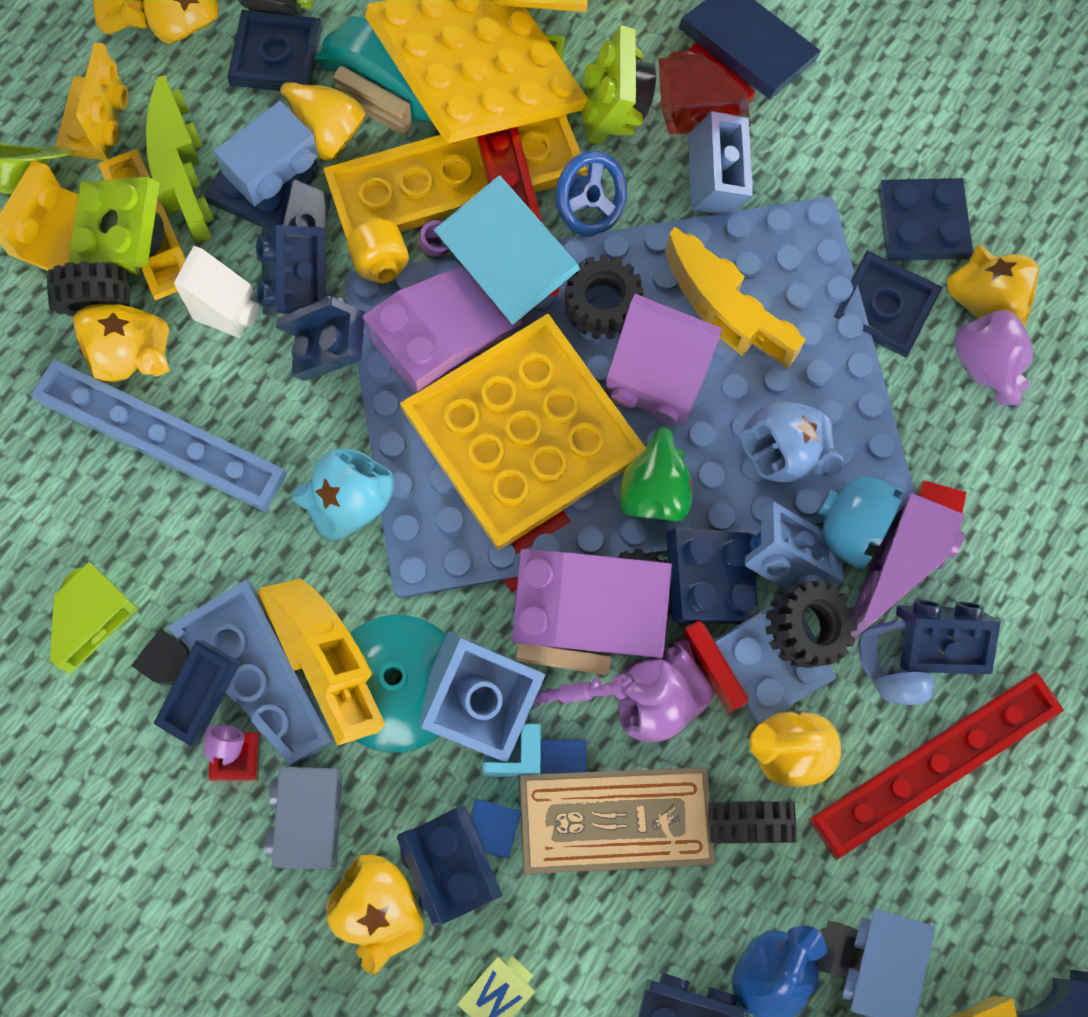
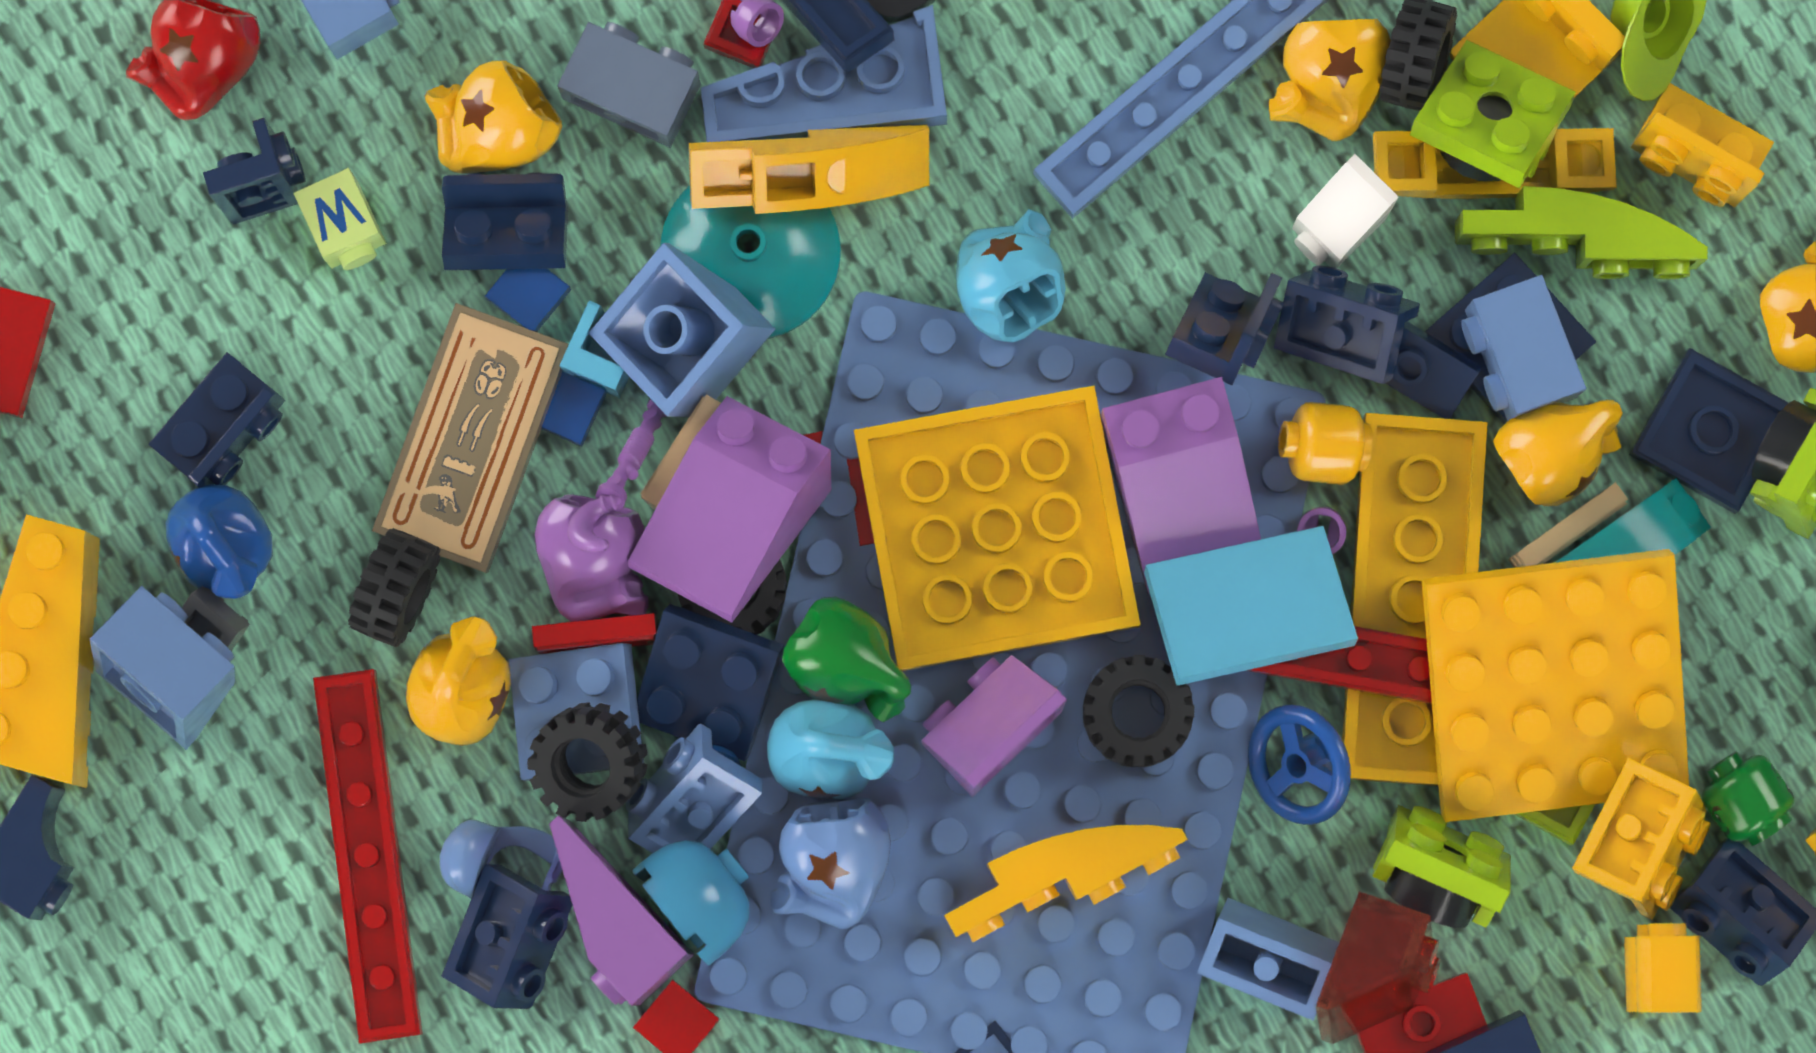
camera: 120 degrees right, 10 degrees up
(722, 472) = (827, 750): none -> medium azure piece

